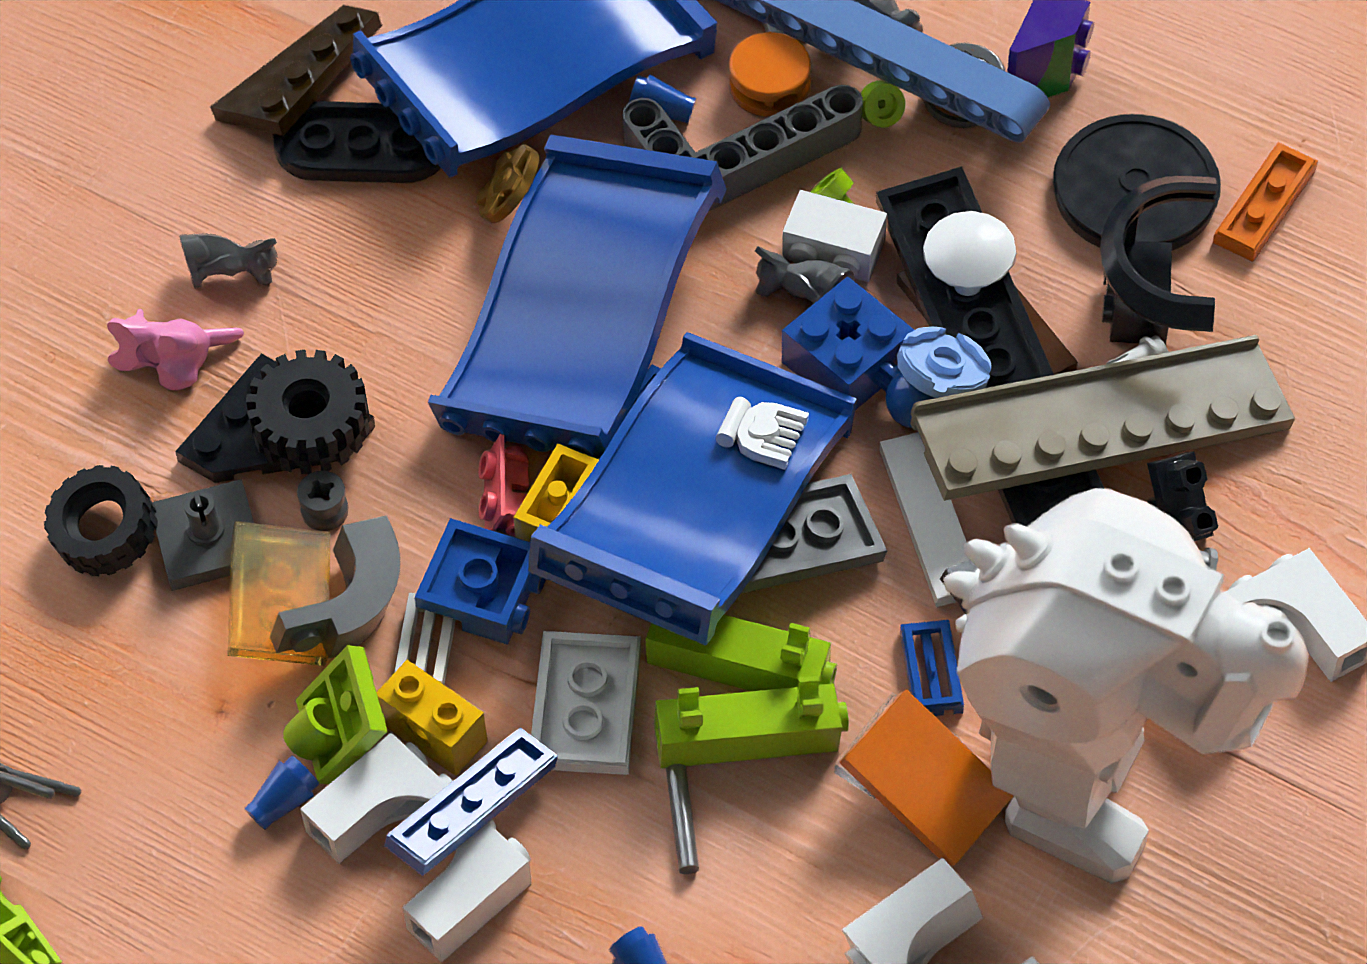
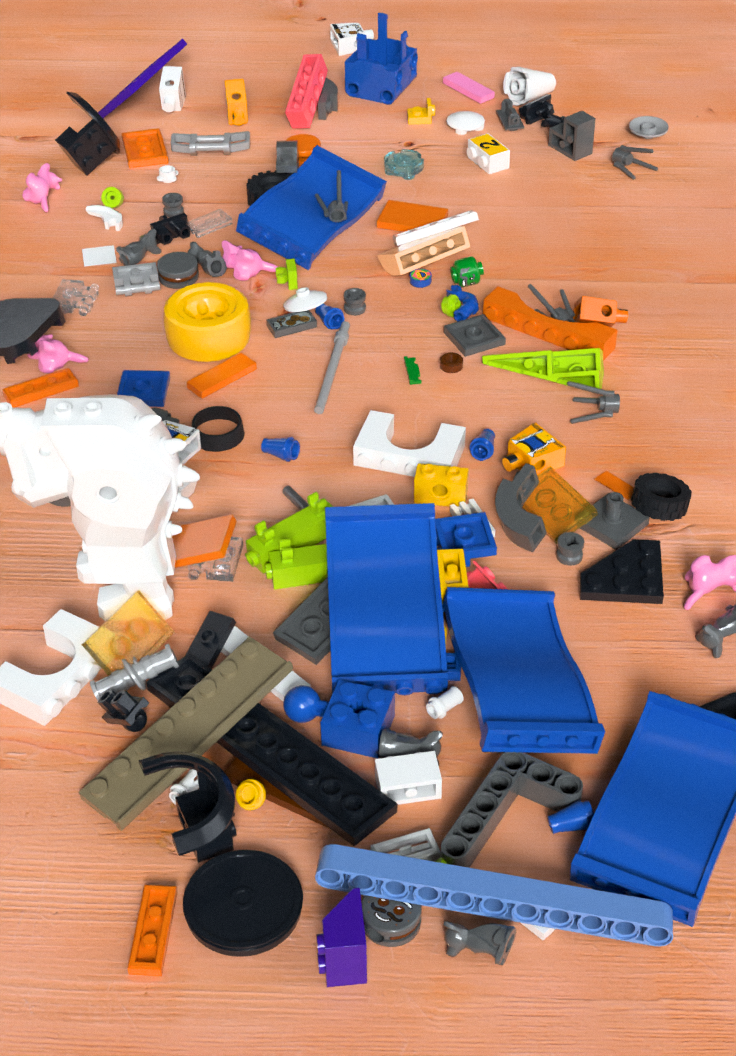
camera: 150 degrees right, 15 degrees down
(129, 613) = (615, 484): none -> orange sticker
(217, 725) = (535, 448): none -> light orange torso
(312, 439) = (602, 573): black tyre -> none
(337, 716) = (478, 462): lime plate -> none
(470, 801) = (393, 452): tile -> none
(508, 183) = (612, 717): pearl gold wheel -> none
(713, 327) = (440, 705): none -> white pin
(759, 431) = (369, 630): white piece -> none
(769, 73) = (520, 857): orange head -> none
(835, 186) = (428, 805): lime tile -> none
(892, 167) = (425, 851): none -> white tile
(936, 703) = (211, 604): blue tile -> none
(943, 363) = (291, 708): light blue tile -> none
(969, 251) = (316, 783): white dish -> none
(1057, 309) = (250, 794): none -> yellow plate

